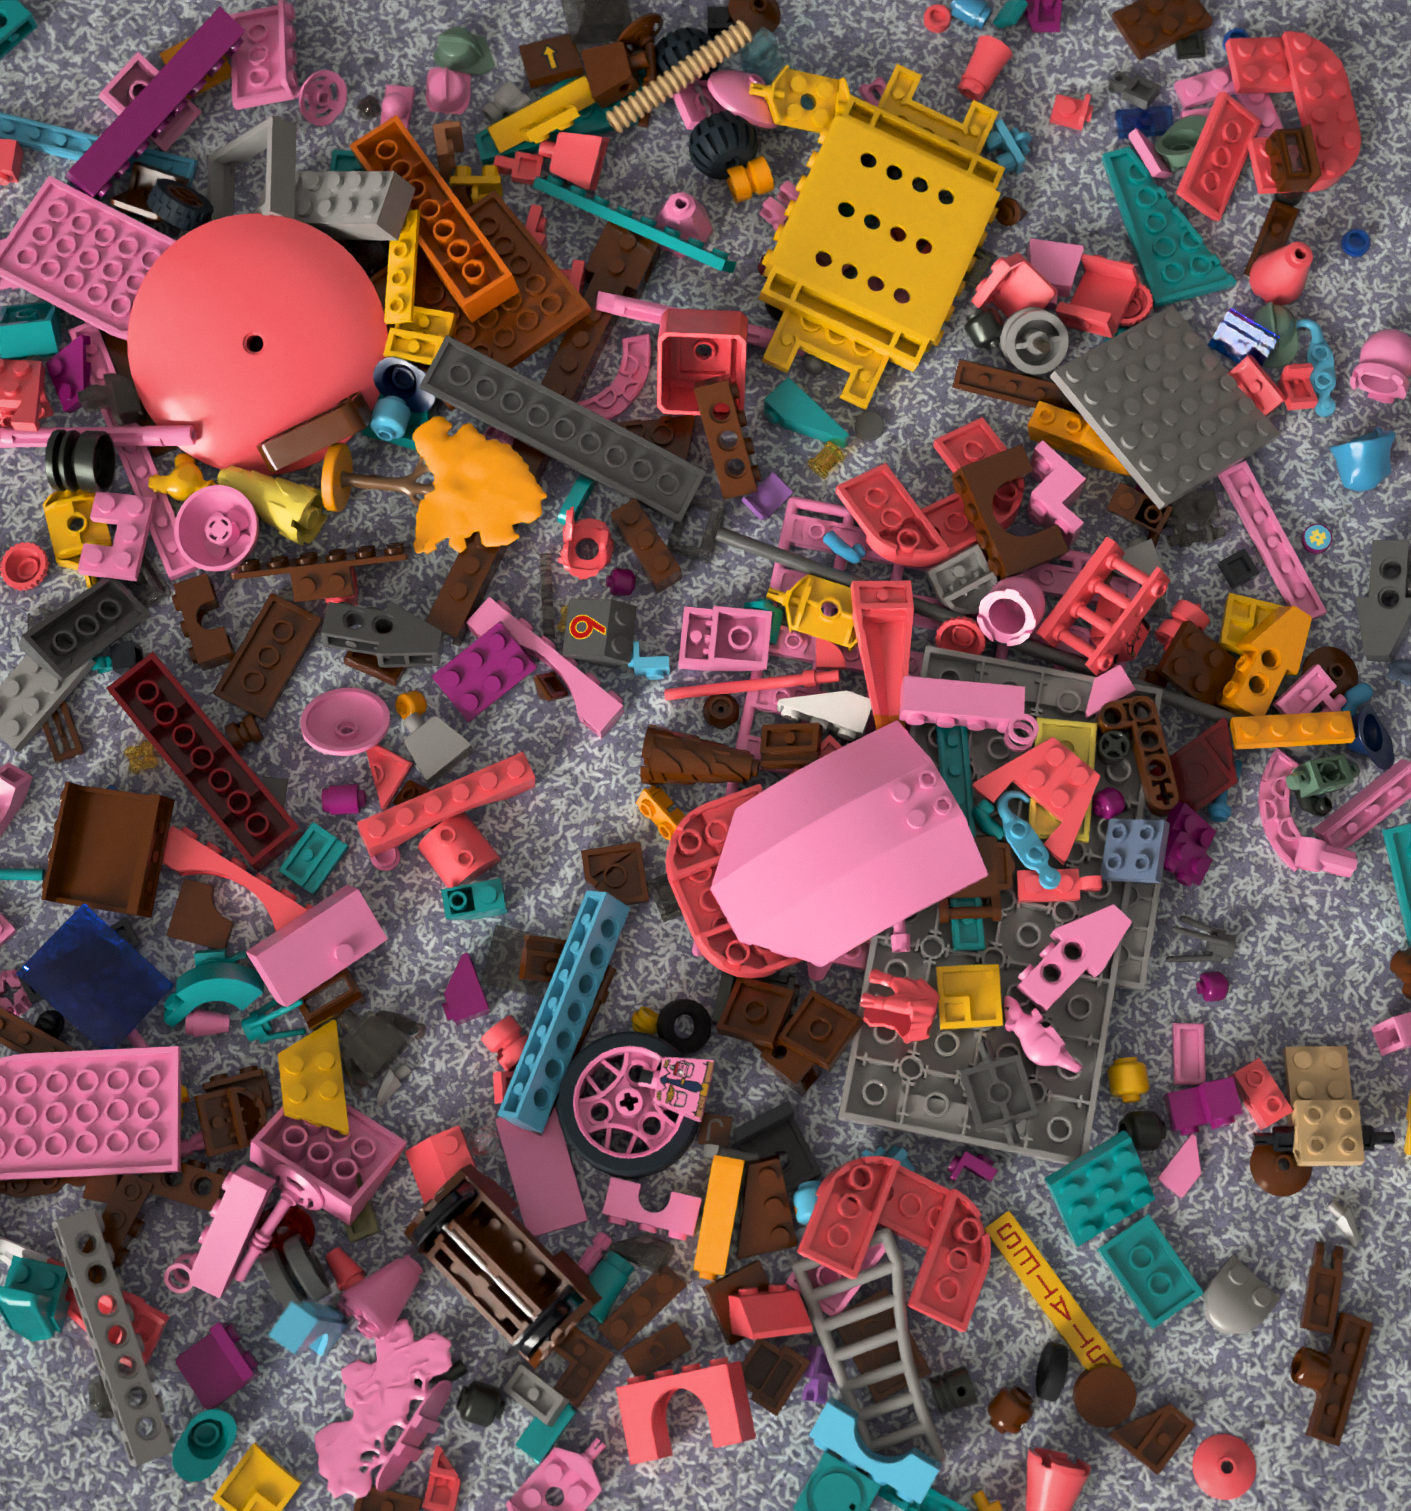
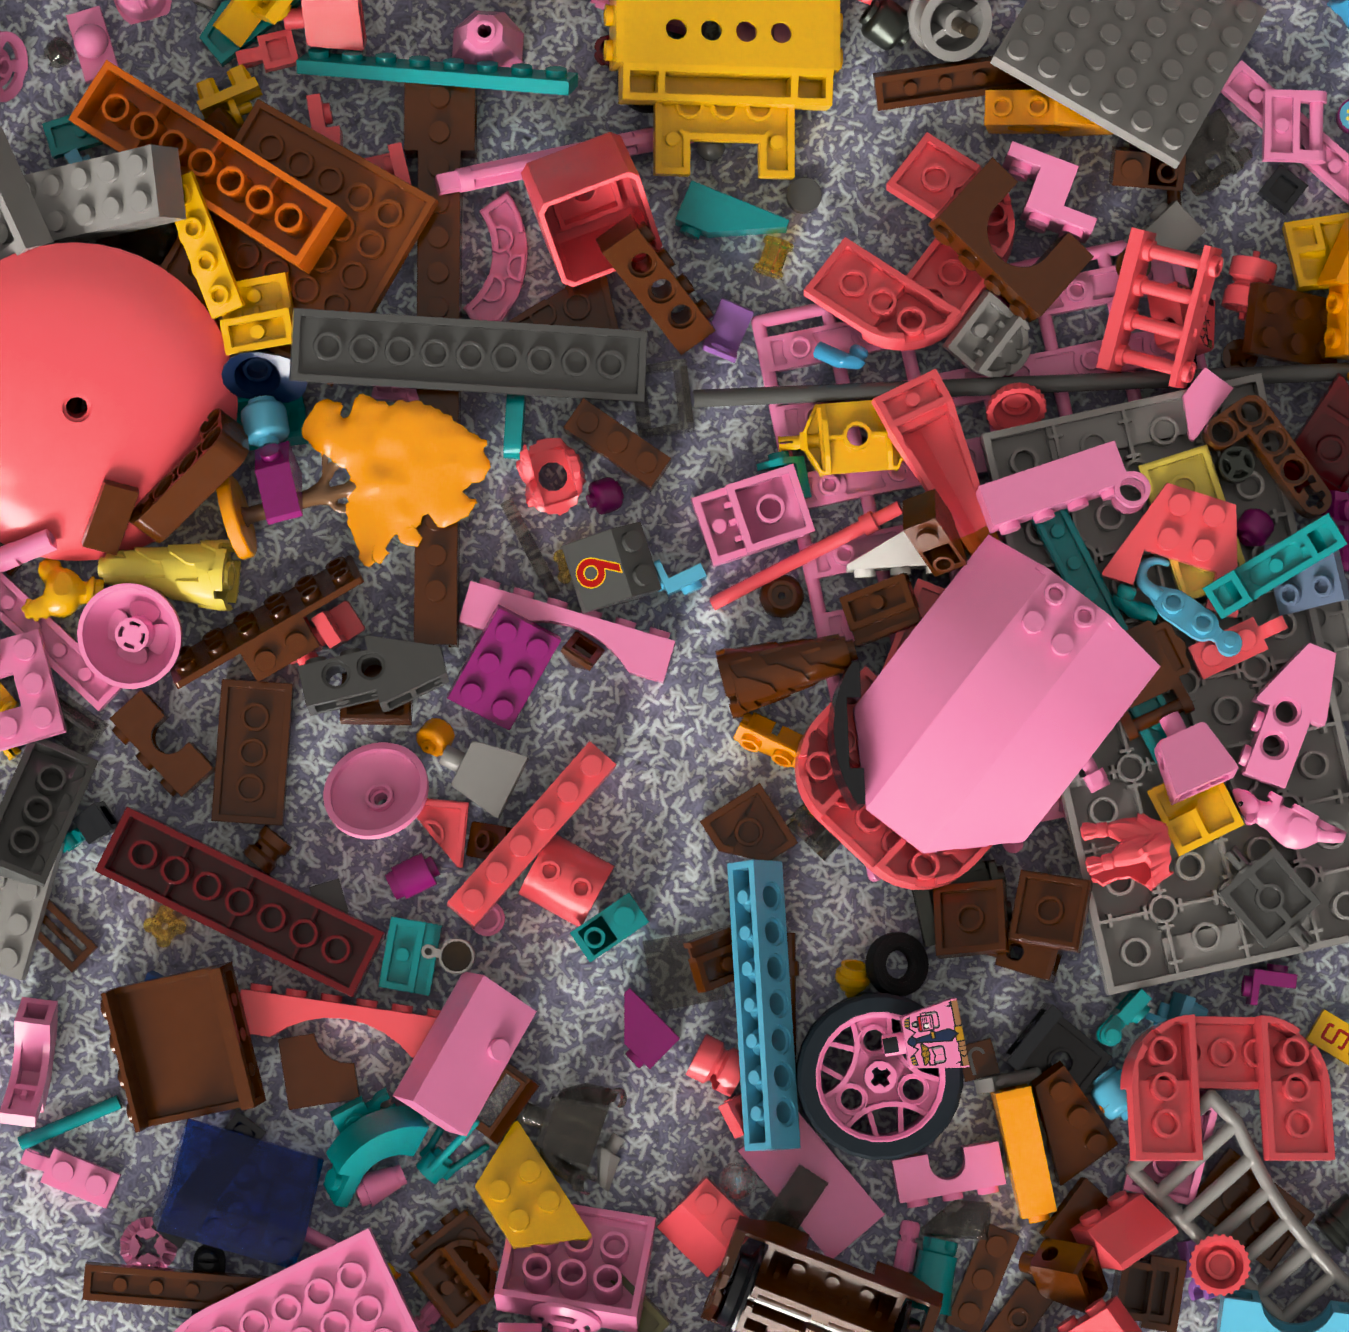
camera: 25 degrees left, 10 degrees up
(243, 437) = (110, 517): none -> reddish brown tile
(344, 869) = (454, 956): none -> piece
(374, 591) = (337, 625): none -> coral bracket
(379, 460) = (279, 482): none -> magenta slope
(447, 142) = (171, 60): nougat bracket -> none
(523, 1173) = (796, 1197): none -> clear smoke slope
(707, 856) = (849, 780): none -> black slope
(709, 1327) = (1066, 1273): none -> reddish brown torso
(828, 656) = (877, 487): coral tile -> none
(835, 1374) = (1219, 1265): none -> coral hat
(852, 1139) = (1129, 1009): none -> teal plate
(854, 699) = (933, 532): none -> reddish brown slope
(982, 954) = (1191, 758): none -> bright pink torso
(1011, 610) = (1061, 354): bright pink tile -> none
(1111, 832) = (1275, 566): none -> teal slope
(1257, 519) = (1282, 126): none -> bright pink plate

